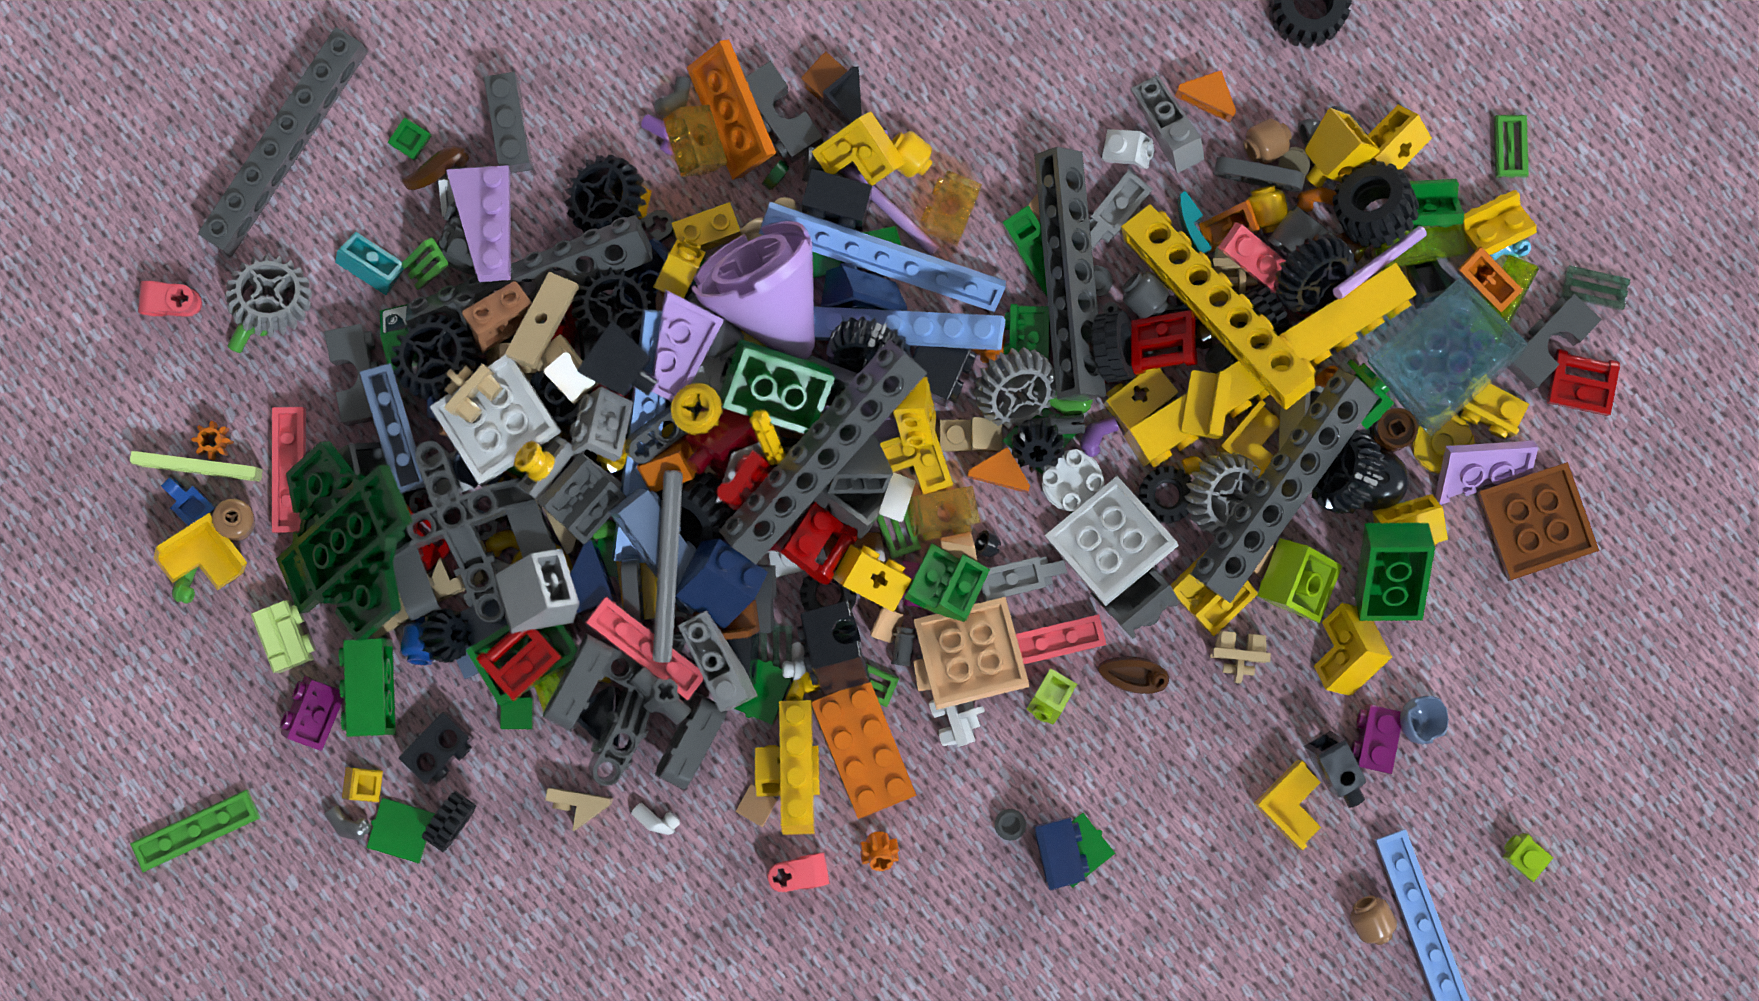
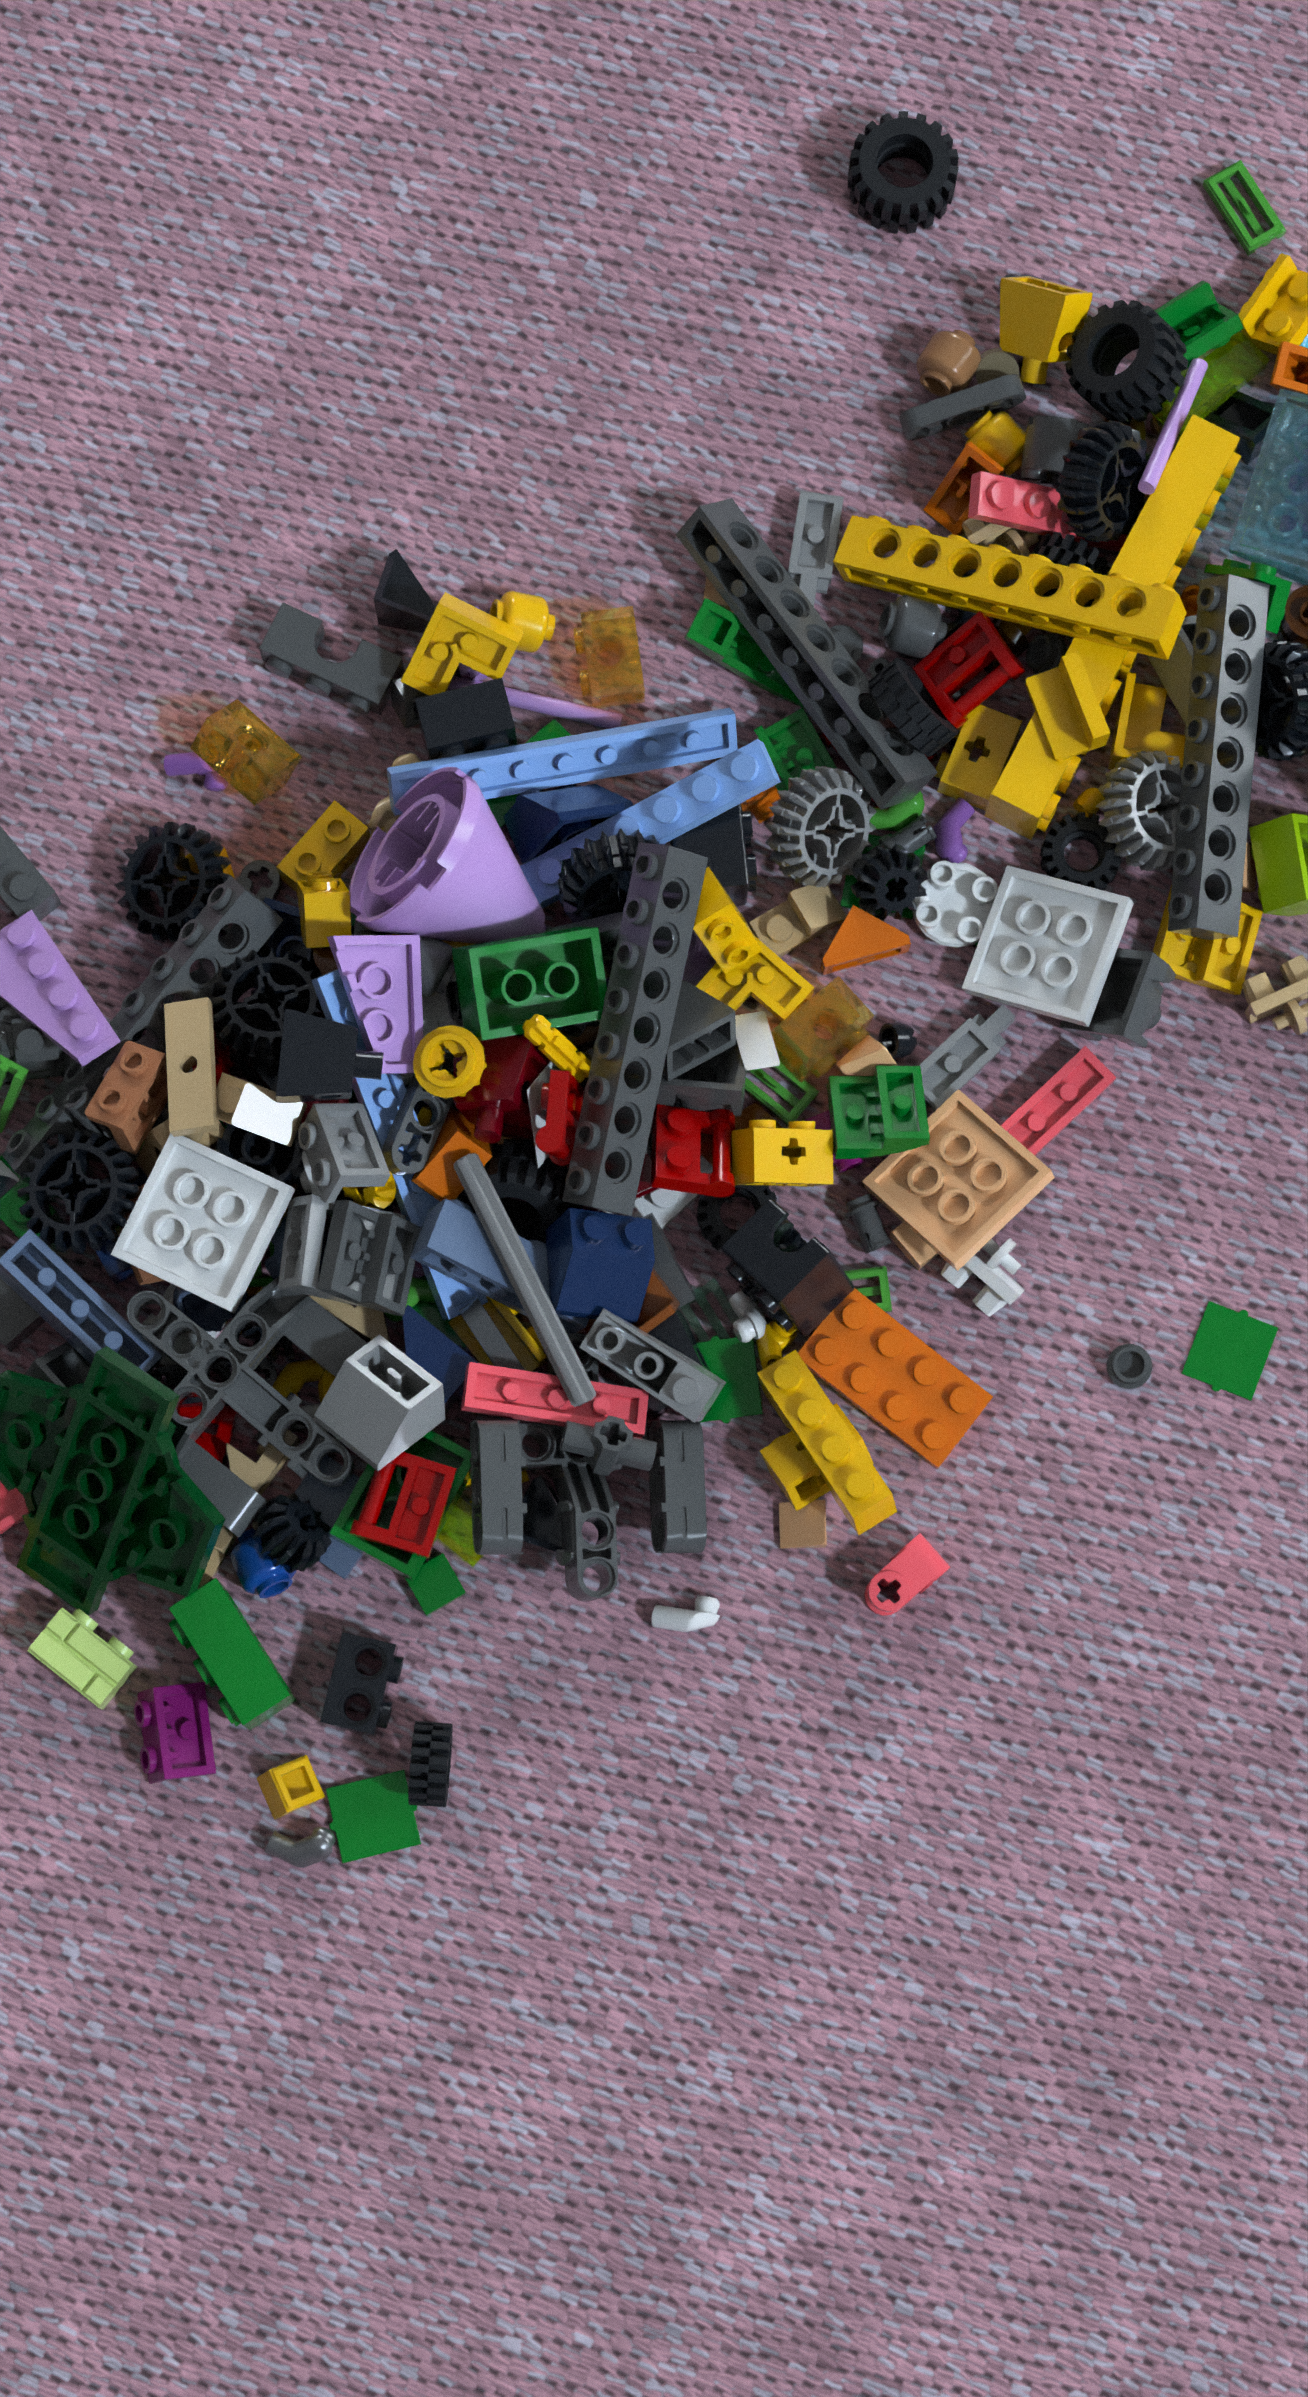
camera: 30 degrees left, 5 degrees down
(195, 830) = (111, 1968): bright green tile -> none
(480, 381) = (160, 1182): tan hips -> none
(534, 461) = (284, 1241): yellow wheel -> none
(586, 804) = (592, 1644): tan slope -> none
(675, 100) = (191, 718): dark grey arm -> none
(736, 116) = (241, 664): orange plate -> none
(775, 175) = (370, 740): dark green tile -> none
(822, 75) = (357, 587): dark orange panel -> none
(879, 851) = (988, 1490): orange gear -> none
(886, 624) = (831, 1208): light nougat slope -> none
(1051, 697) = (1087, 1181): lime bracket -> none
(1060, 853) = (1211, 1362): dark blue slope -> none
(1128, 148) = (783, 465): white bracket -> none
(1134, 674) = (1171, 1096): reddish brown arm -> none
(1169, 124) = (818, 409): light grey slope -> none
(1189, 216) = (906, 505): teal slope -> none
(1208, 94) = (845, 347): orange slope -> none
(1307, 126) = (988, 316): dark grey hinge -> none
(1319, 194) = (1048, 393): orange arm -> none
(1399, 137) = (1106, 266): yellow brick -> none

